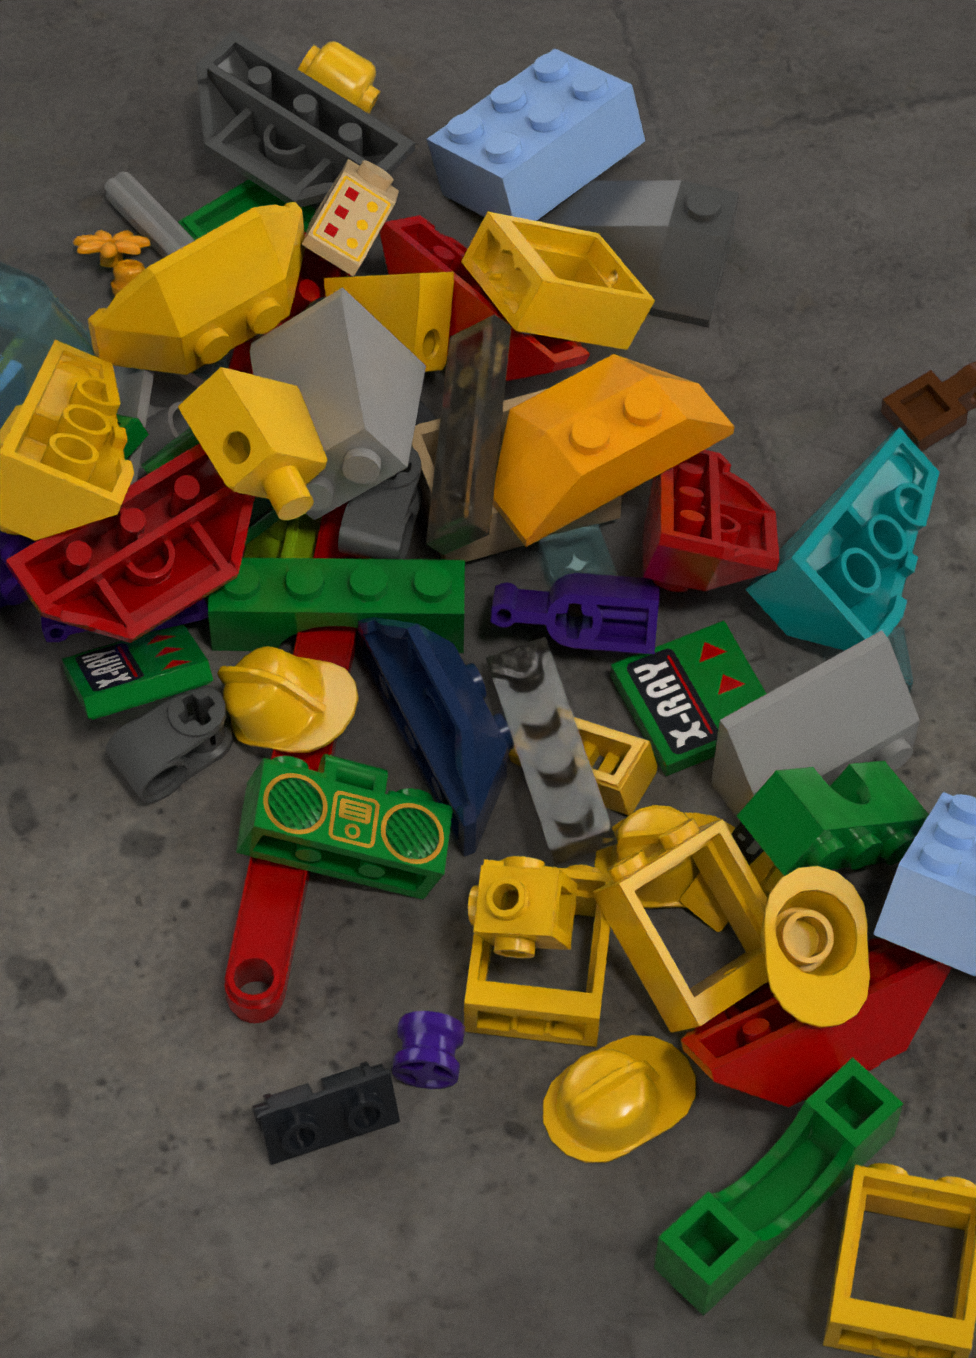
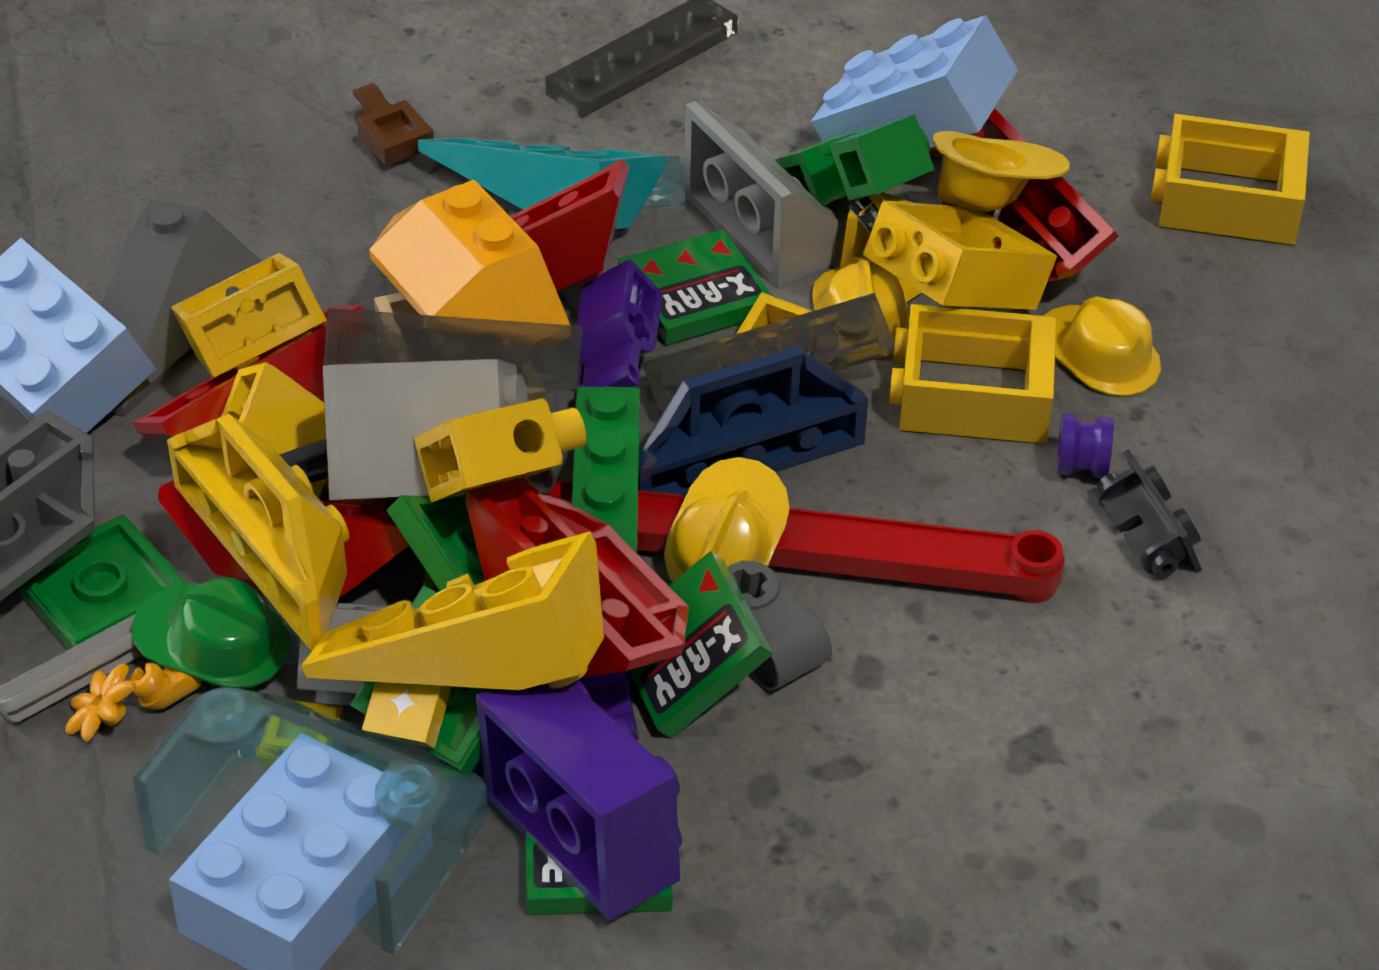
camera: 90 degrees left, 15 degrees down
(345, 824) = (867, 480): green piece -> none
(351, 215) = (130, 450): tan slope -> none
(523, 907) = (975, 330): yellow brick -> none
(740, 1226) = (1243, 272): green arch -> none

